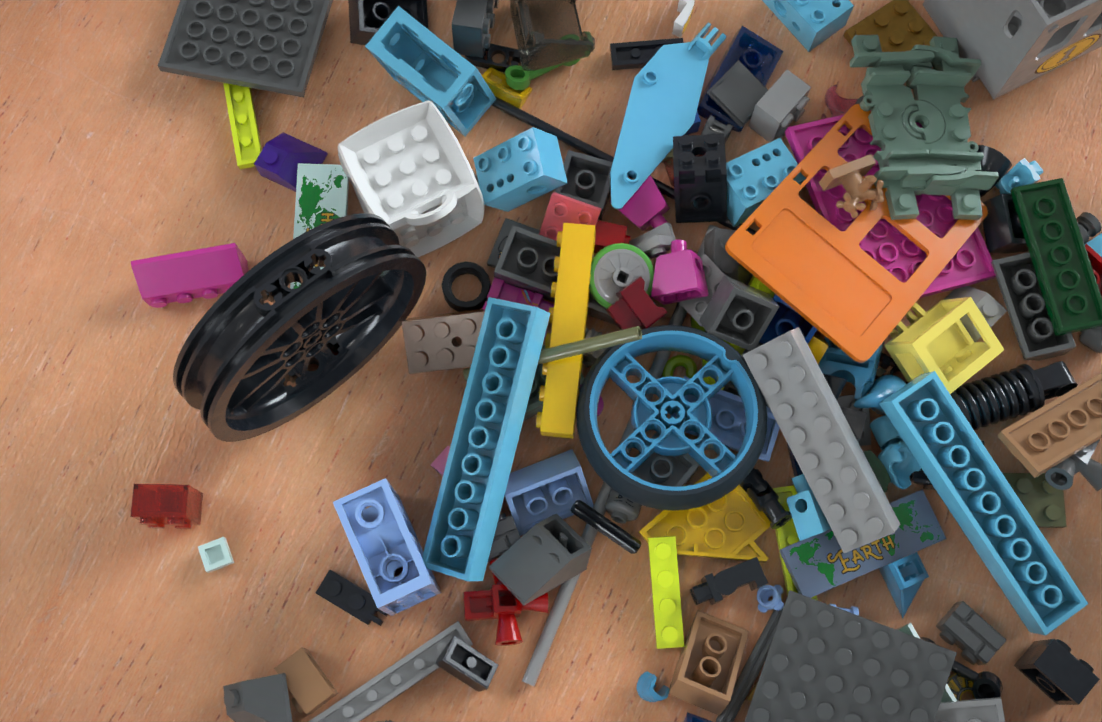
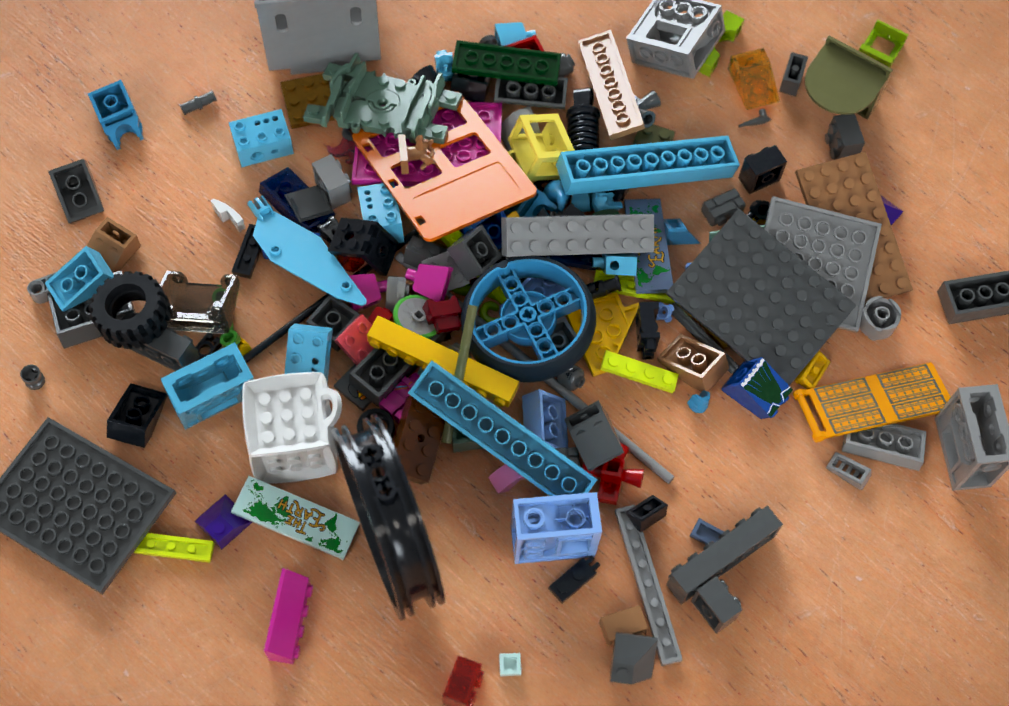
camera: 75 degrees left, 10 degrees down
(605, 526) = (583, 393): black axle -> none

